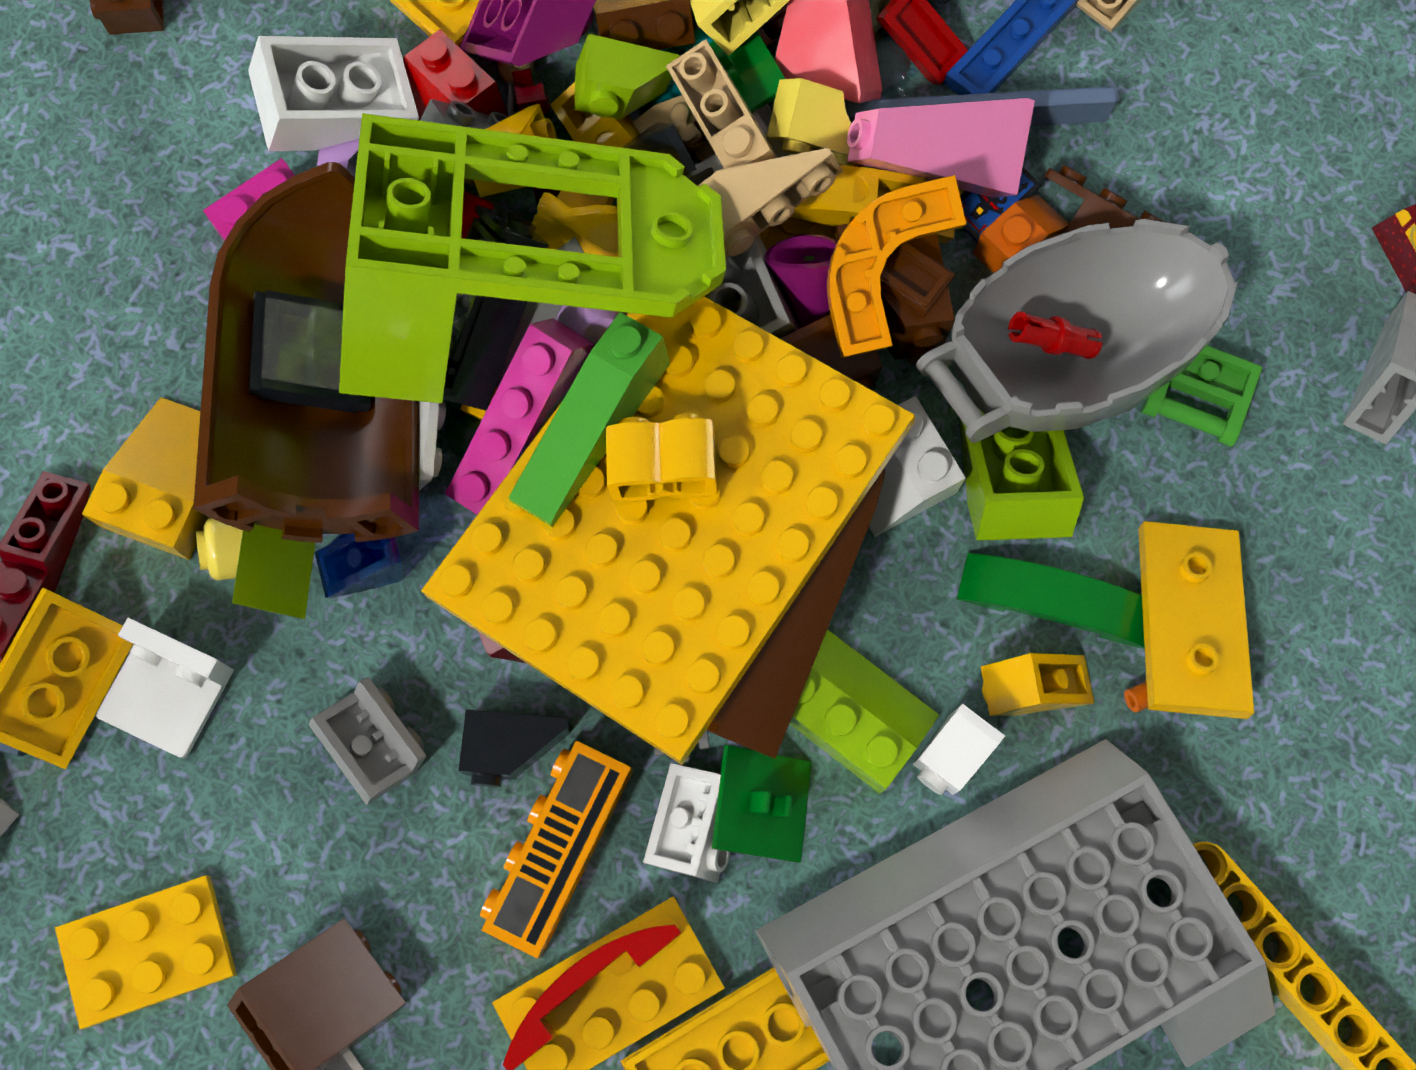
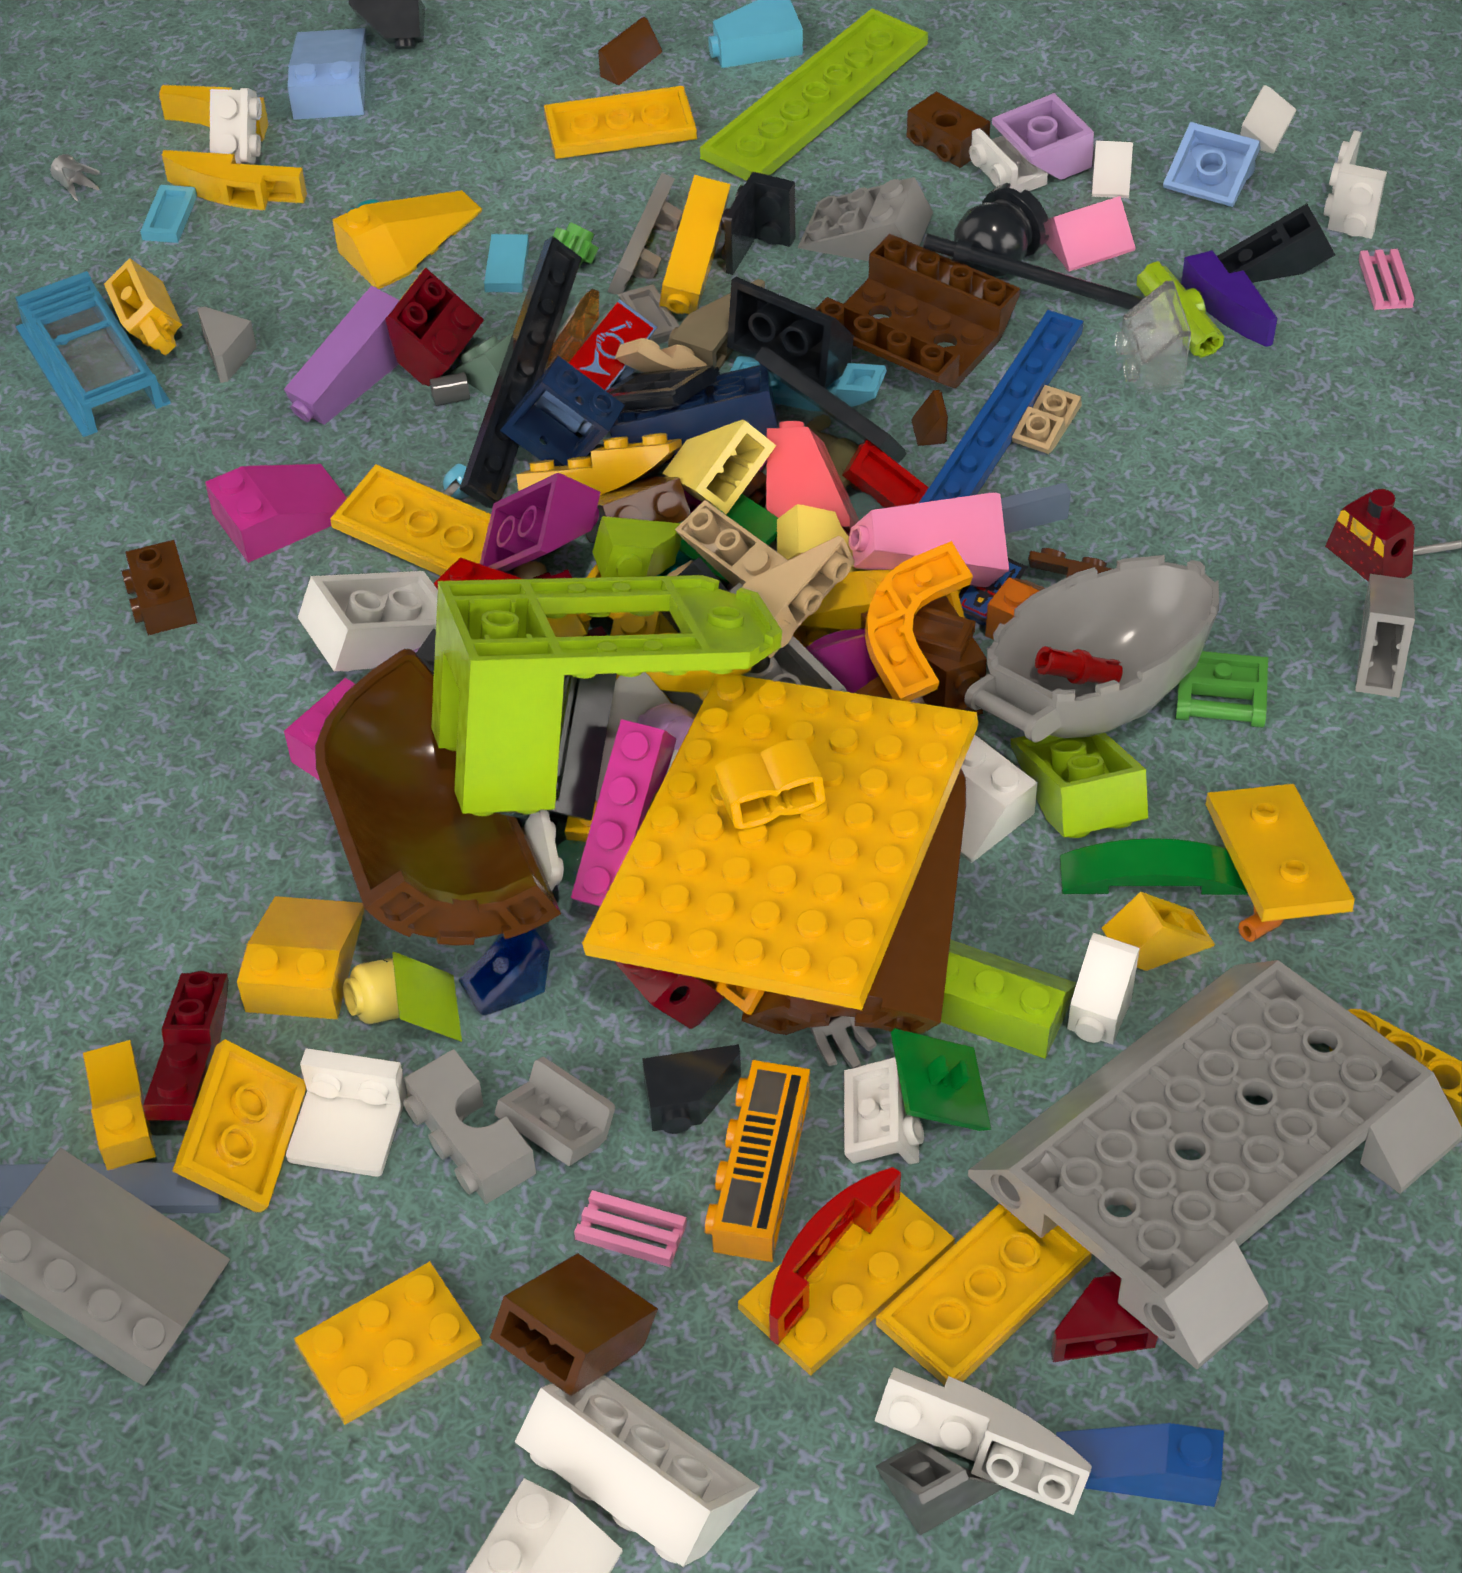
camera: 10 degrees left, 25 degrees down
(259, 695) = (486, 1157): none -> light grey arch
(298, 352) = (415, 812): clear piece -> none
(376, 861) = (635, 1211): none -> bright pink tile
(606, 390) = (709, 733): bright green slope -> none

